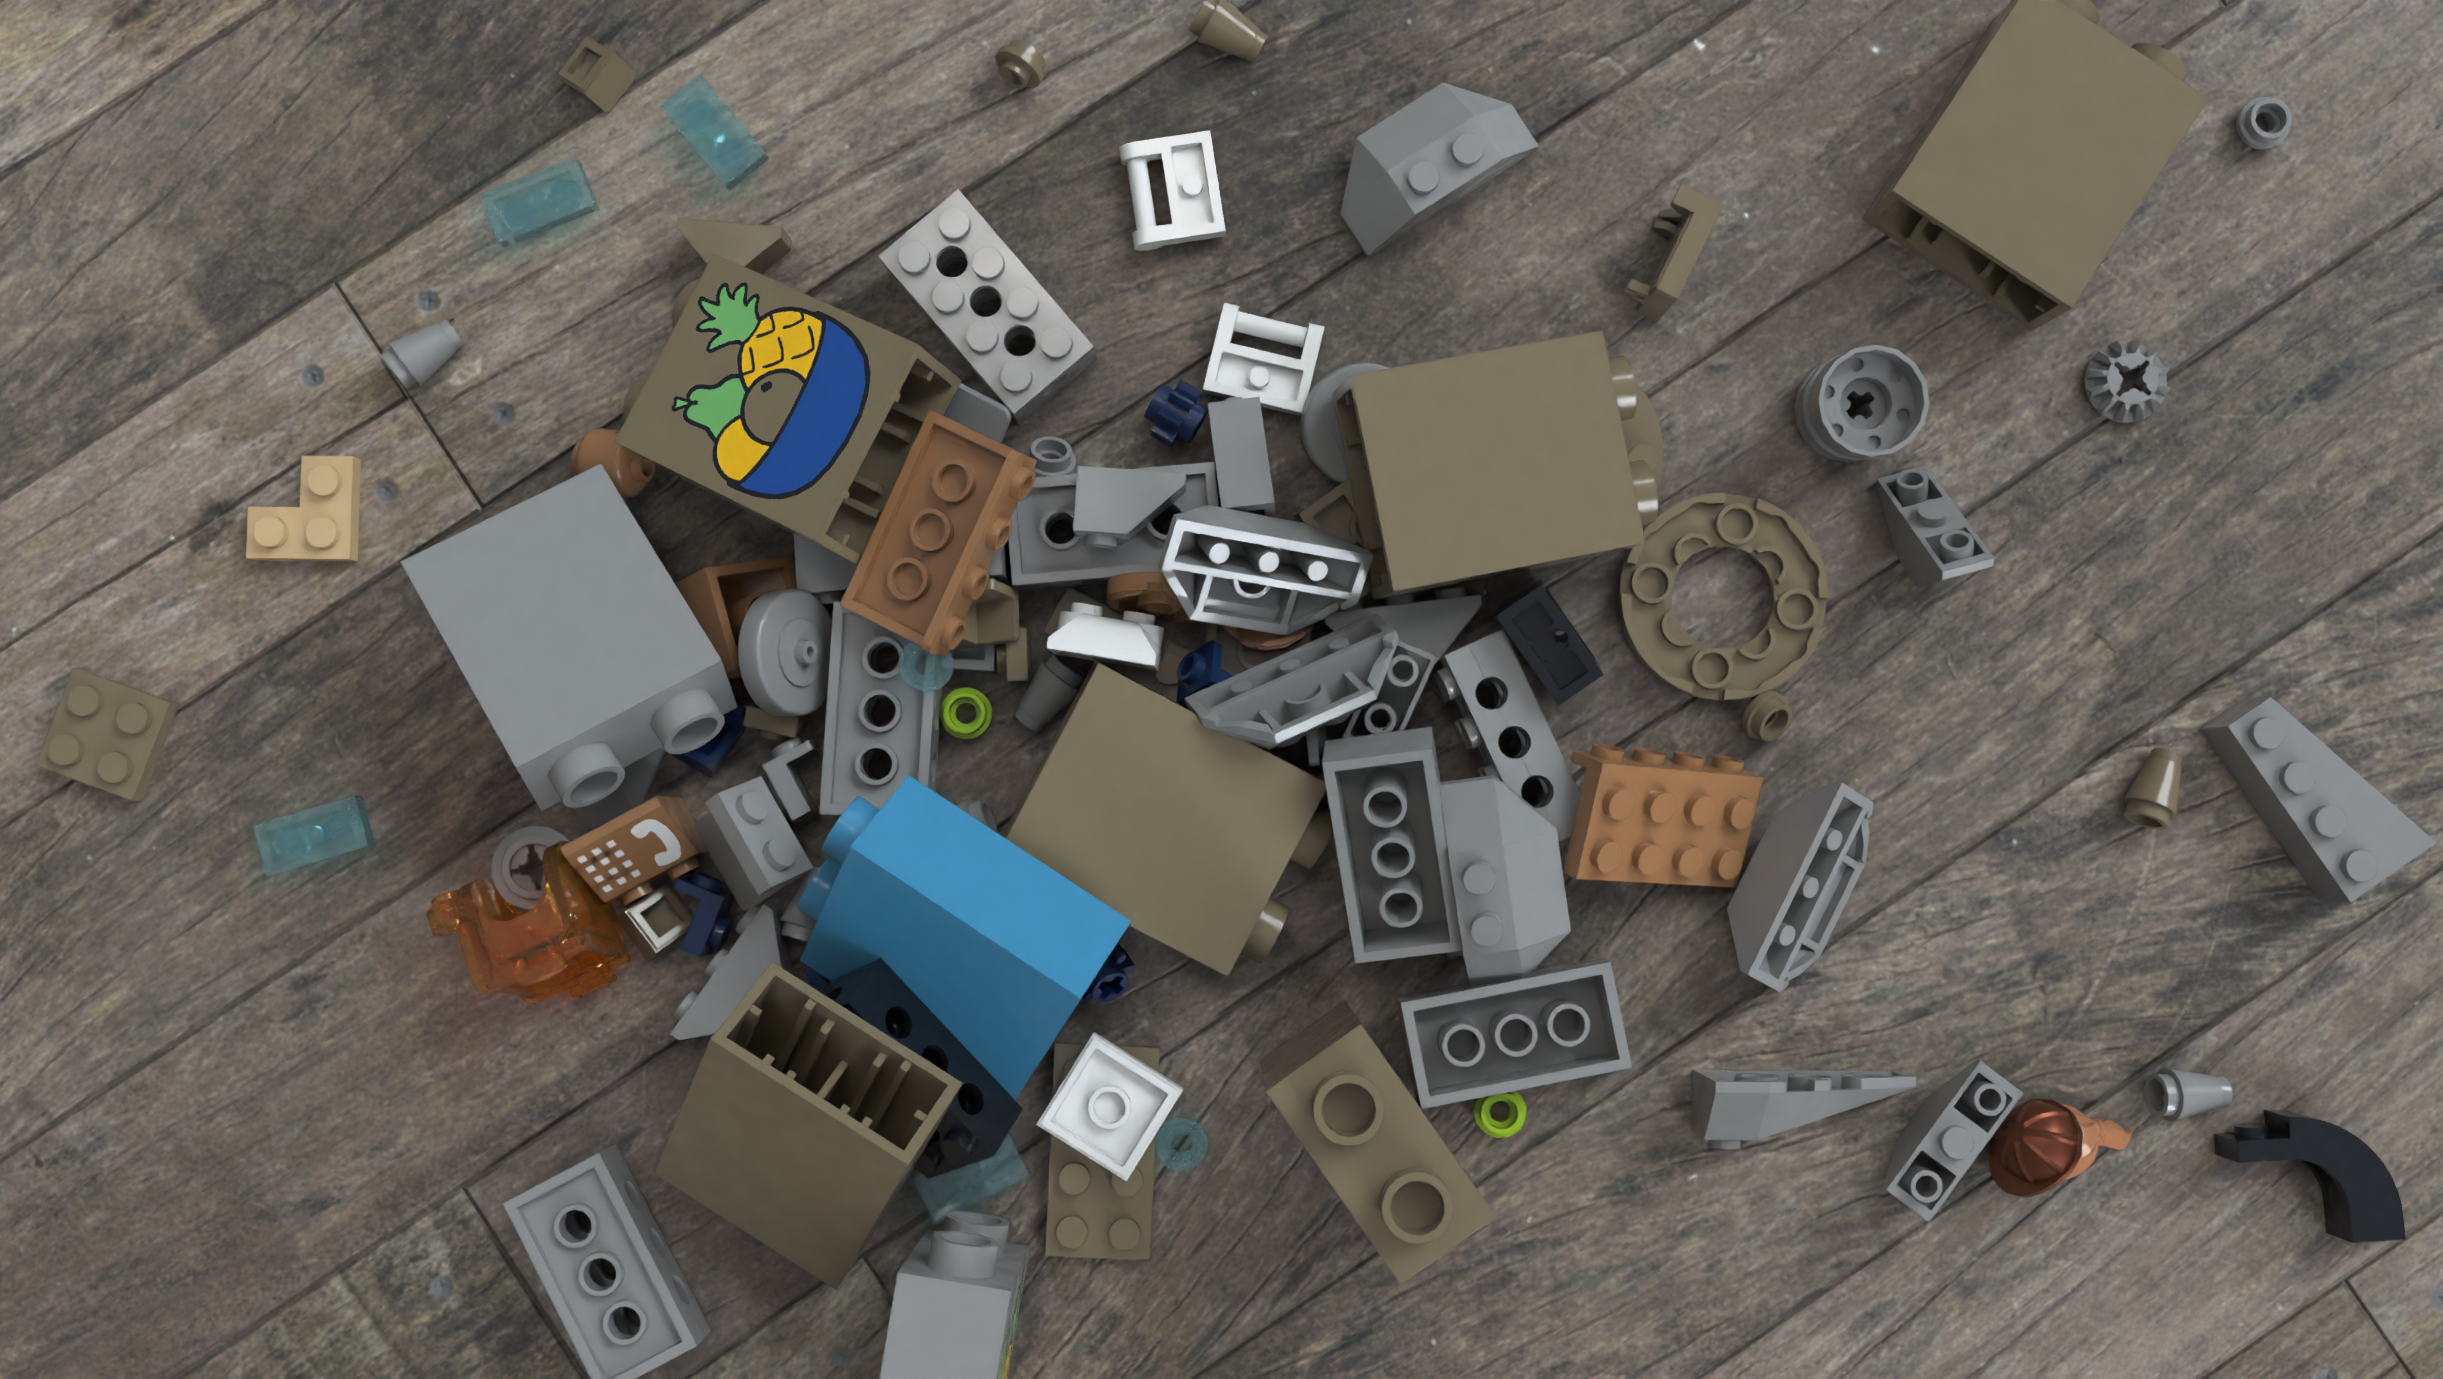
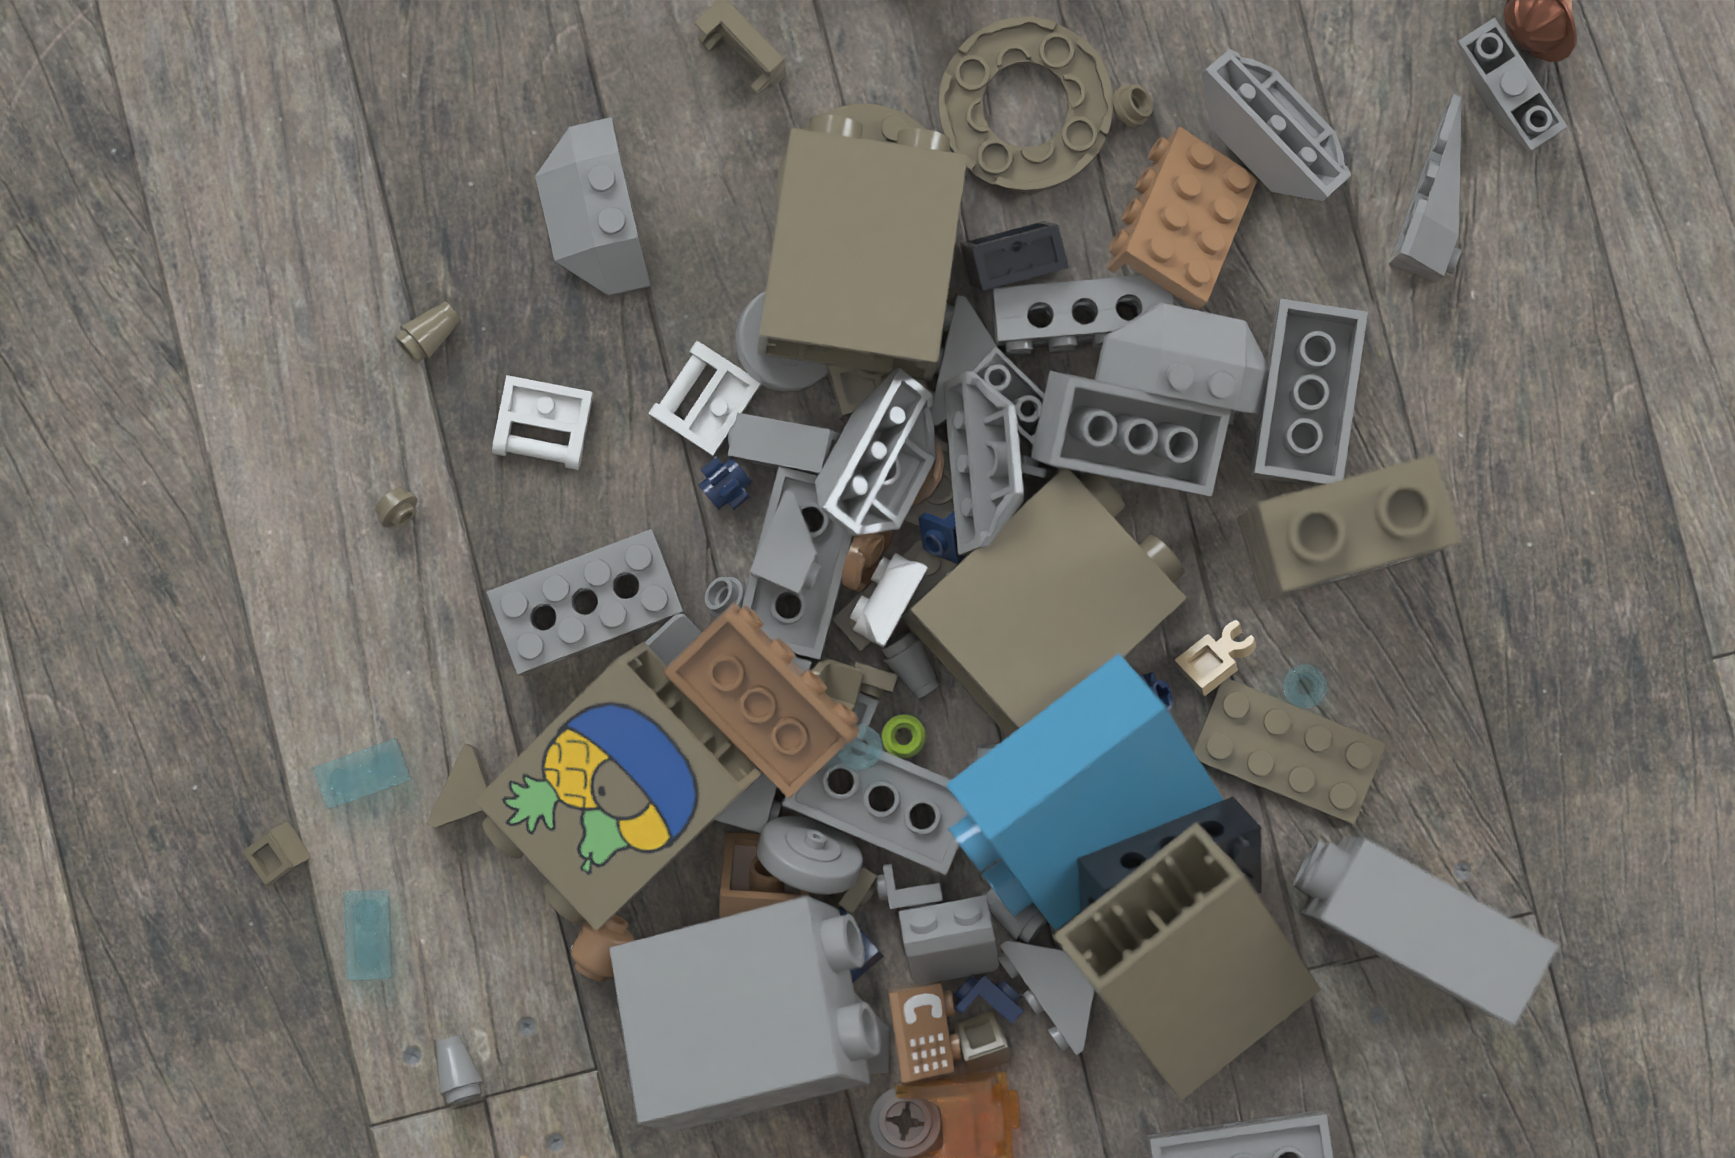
camera: 65 degrees left, 0 degrees up
(972, 1182) = (1276, 861): clear light blue plate -> none
(1110, 1106) = (1255, 730): white tile -> none
(1170, 1029) = (1213, 661): none -> tan plate
(1508, 1125) = (1380, 423): lime plate -> none

